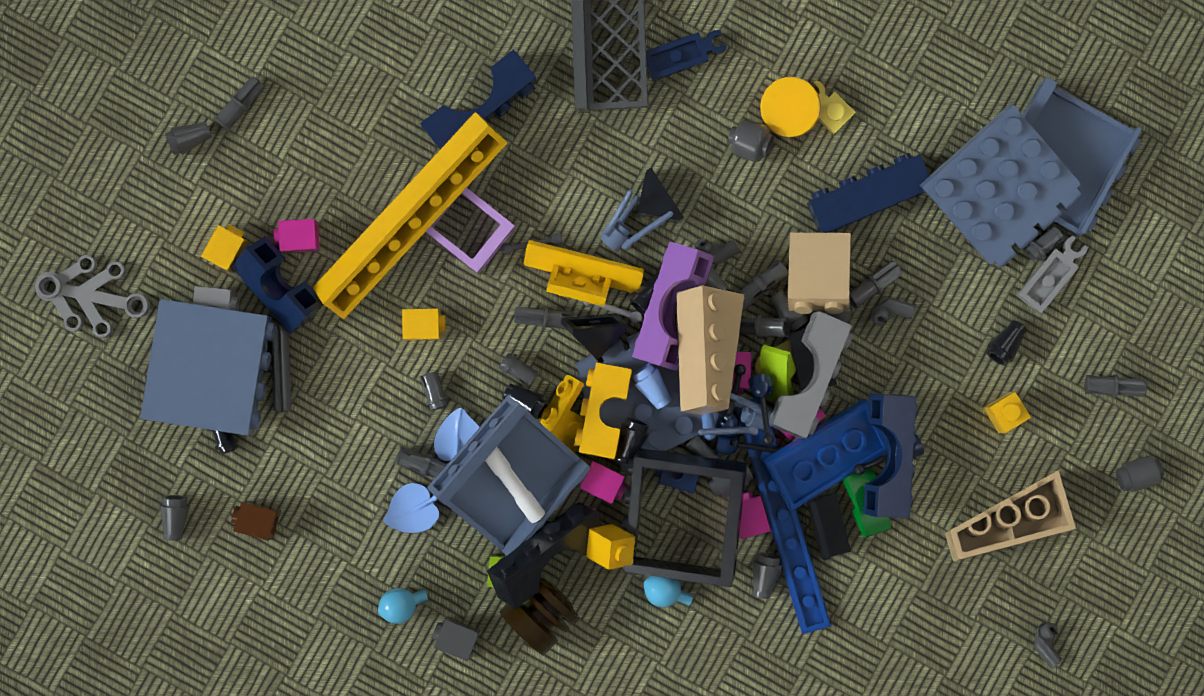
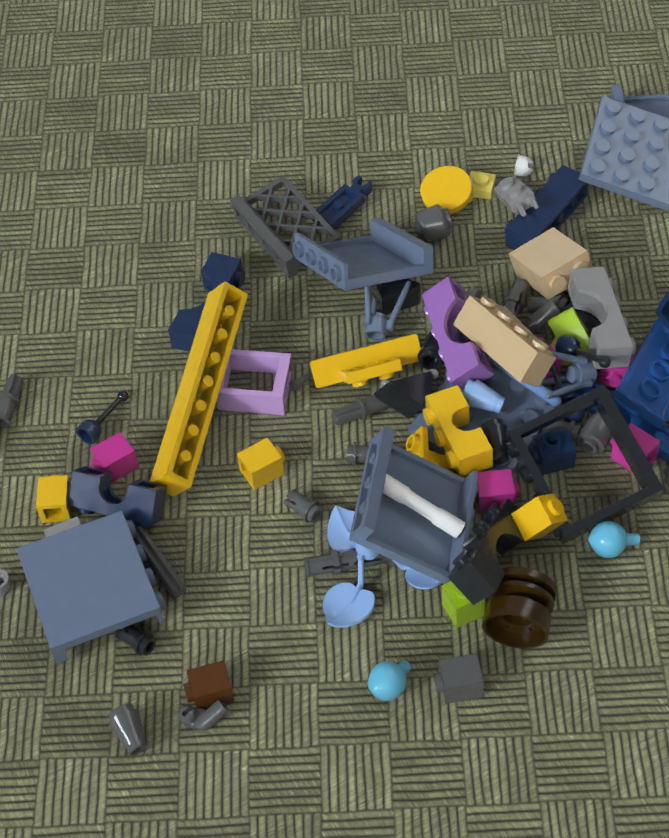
camera: 25 degrees left, 35 degrees down
(237, 541) = (203, 718): none -> dark grey arm
(297, 187) = (90, 430): none -> dark blue hinge
(644, 162) = (367, 260): none -> sand blue panel
(849, 162) = (515, 195): none -> light grey plate
(874, 284) = (600, 253): dark grey axle -> none
(889, 117) = (522, 166): none -> white hinge
(890, 308) = (623, 268): dark grey arm -> none

